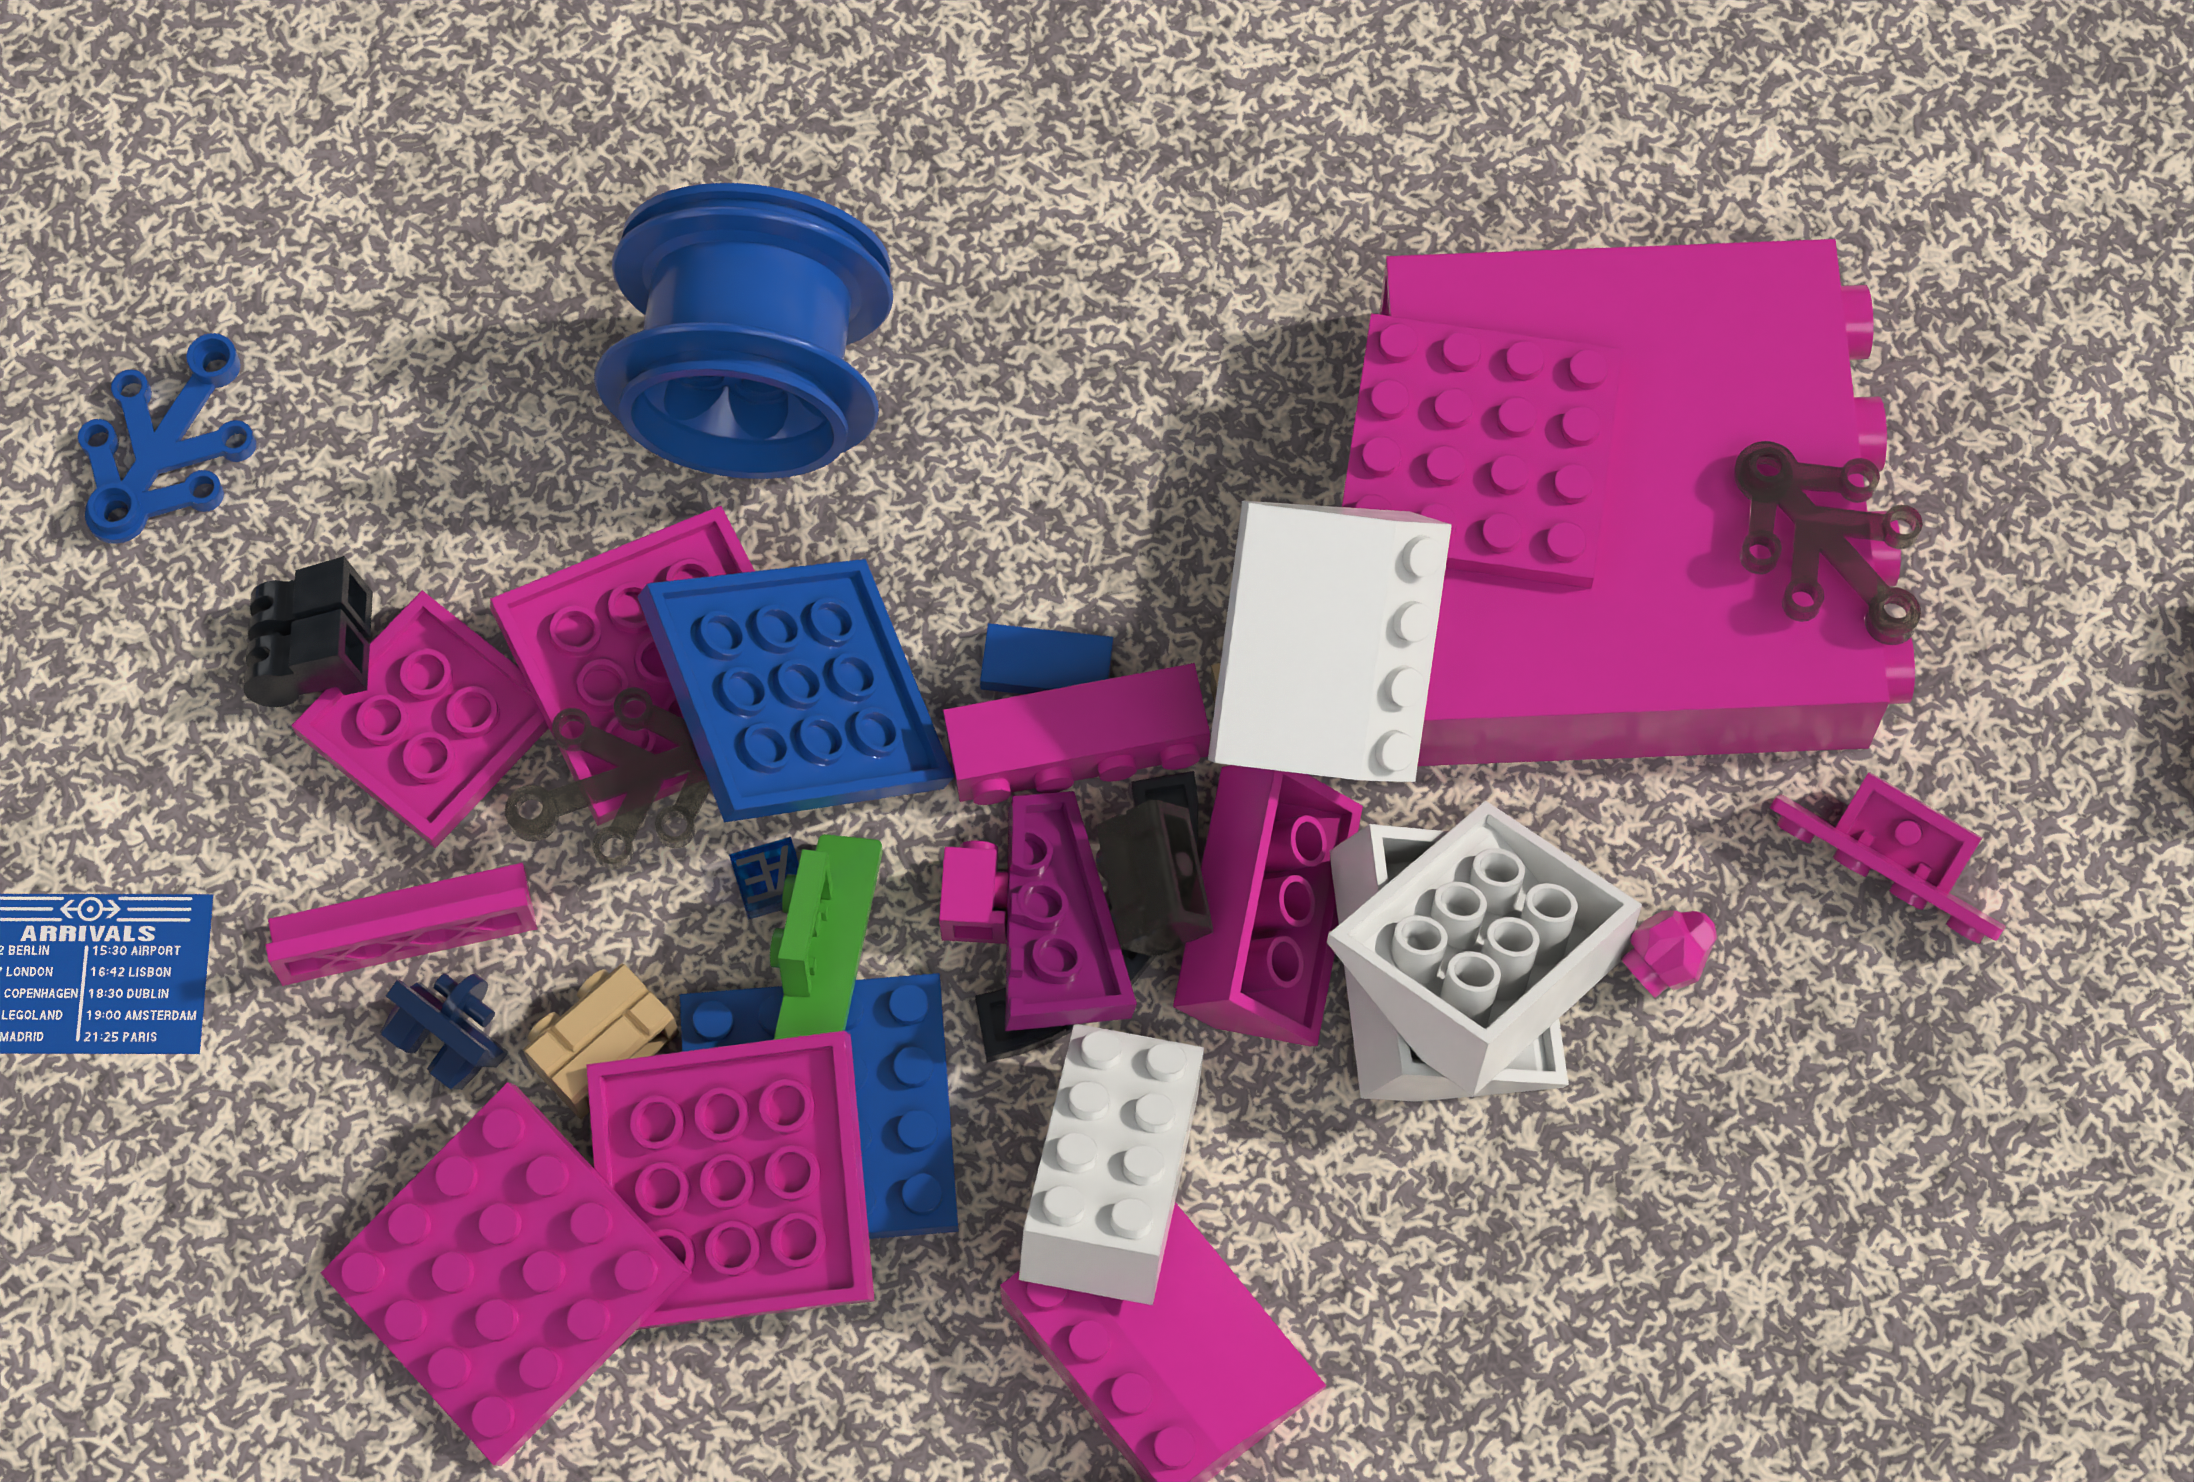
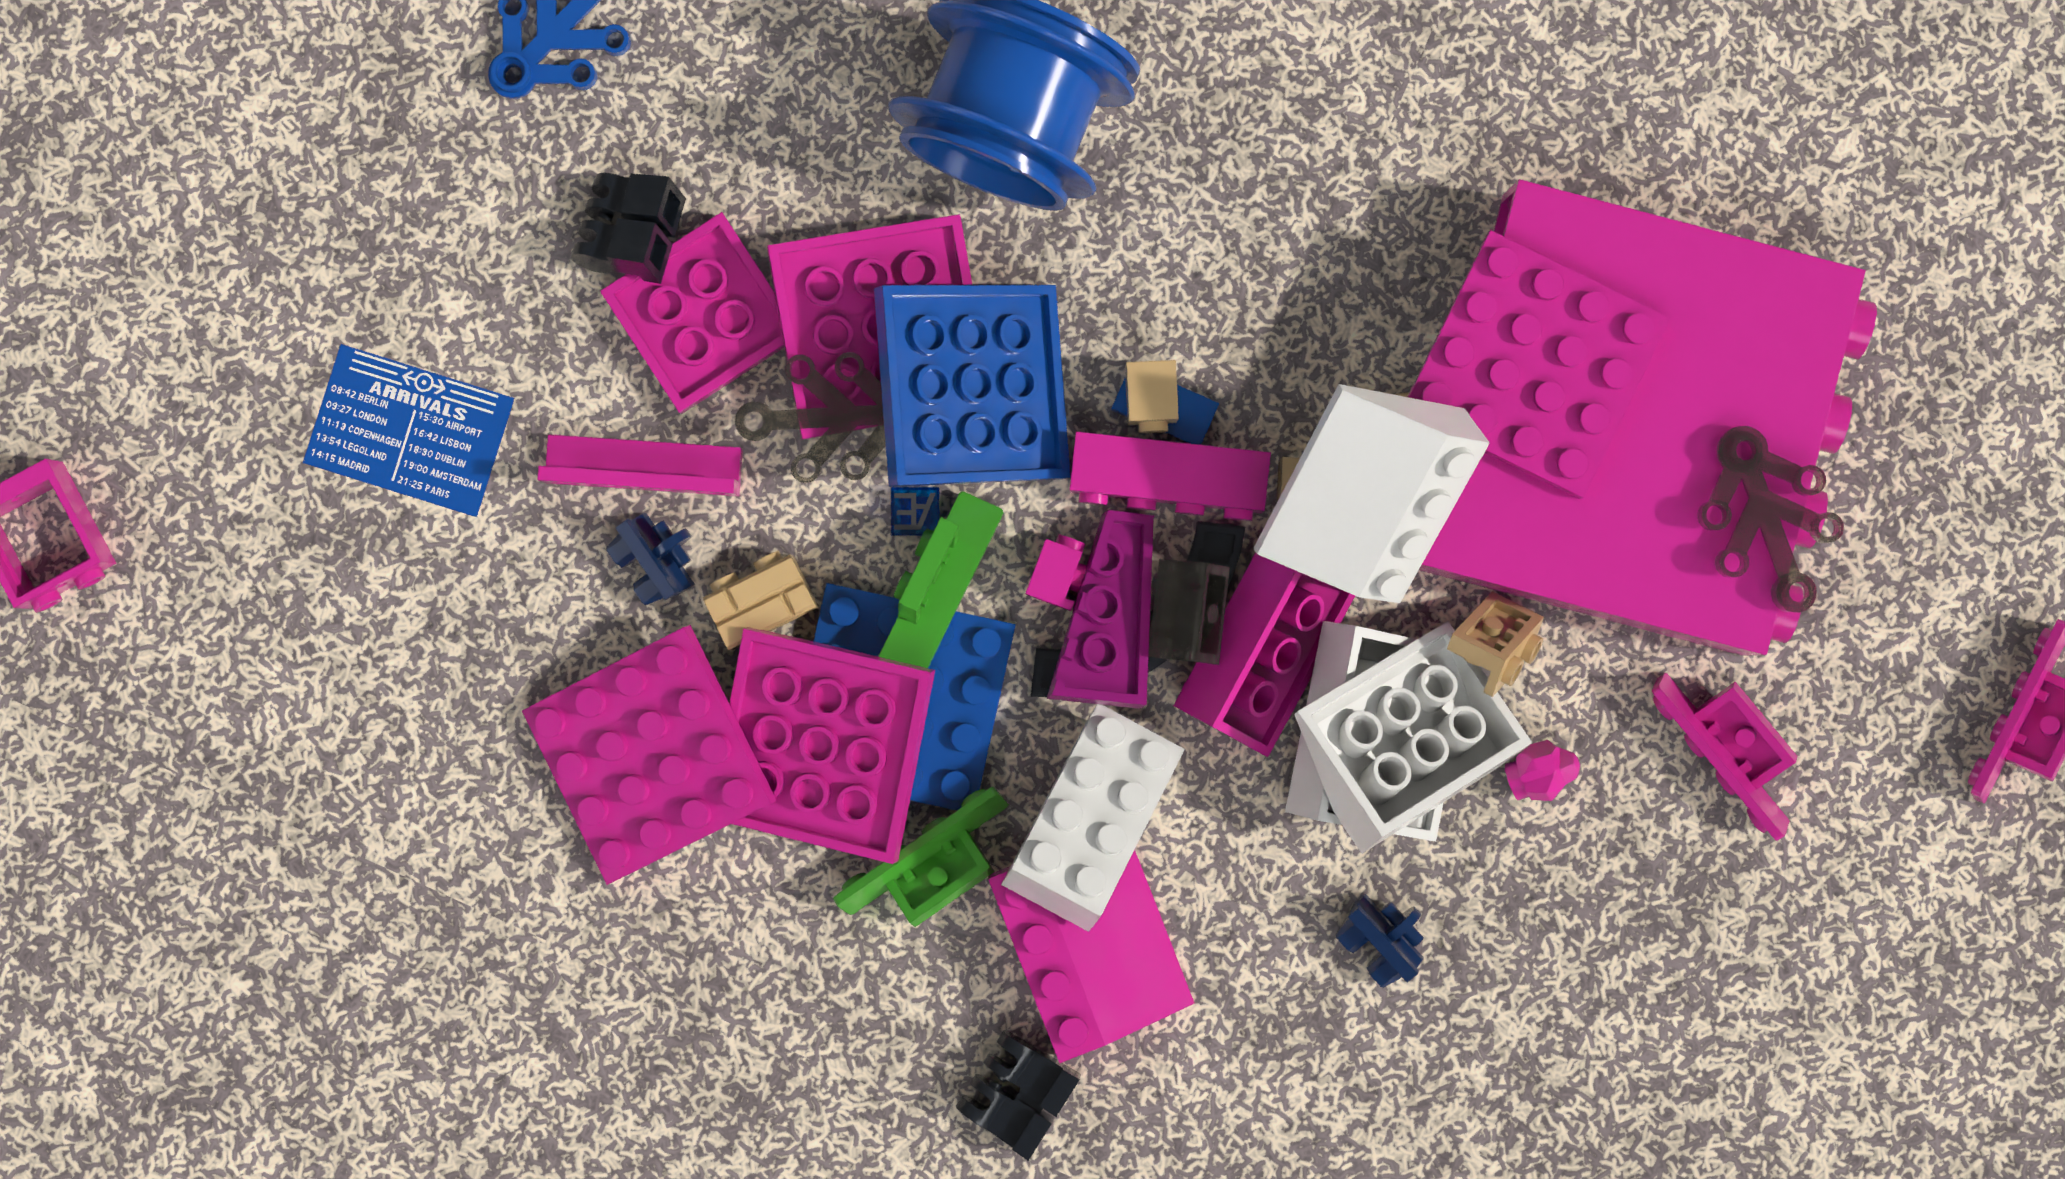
camera: 20 degrees right, 20 degrees up
(920, 1305) = (932, 867): none -> bright green bracket
(1024, 640) = (1151, 395): none -> tan brick
(1515, 1208) = (1389, 933): none -> dark blue hips
(1558, 795) = (1498, 638): none -> tan bracket

